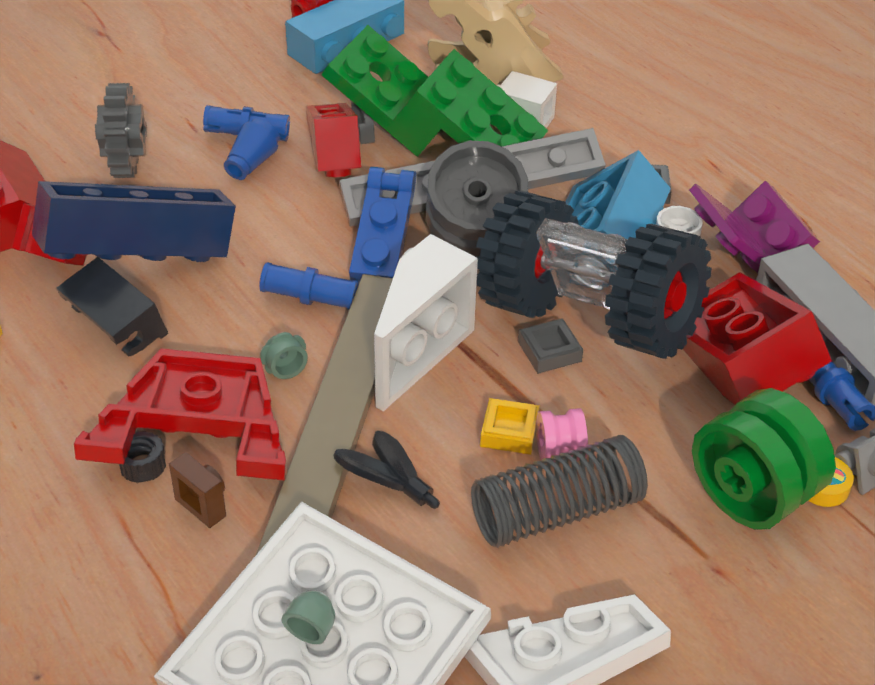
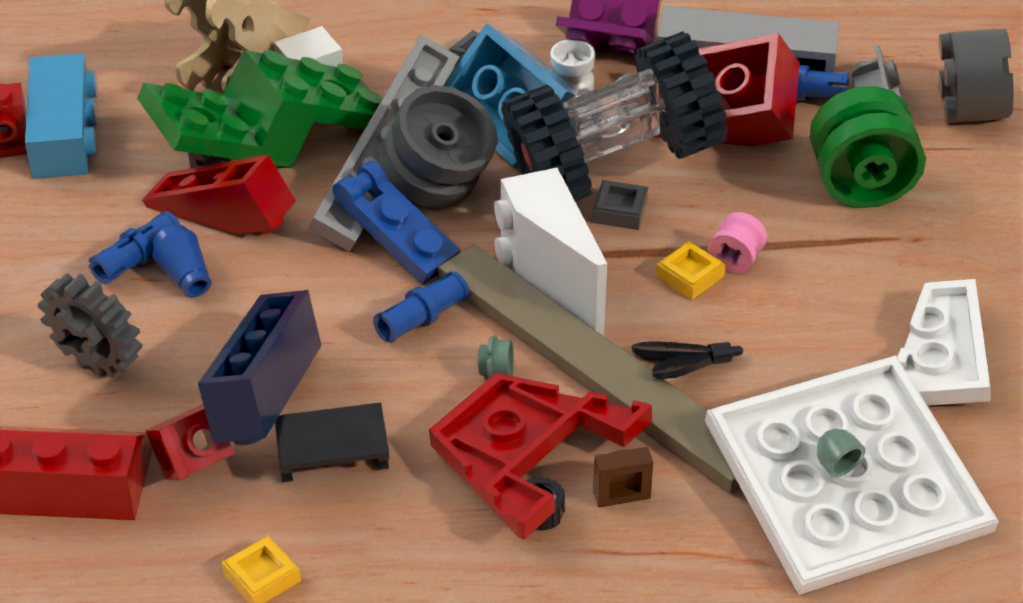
camera: 55 degrees left, 0 degrees up
(488, 493) = (794, 289): dark grey piece -> none

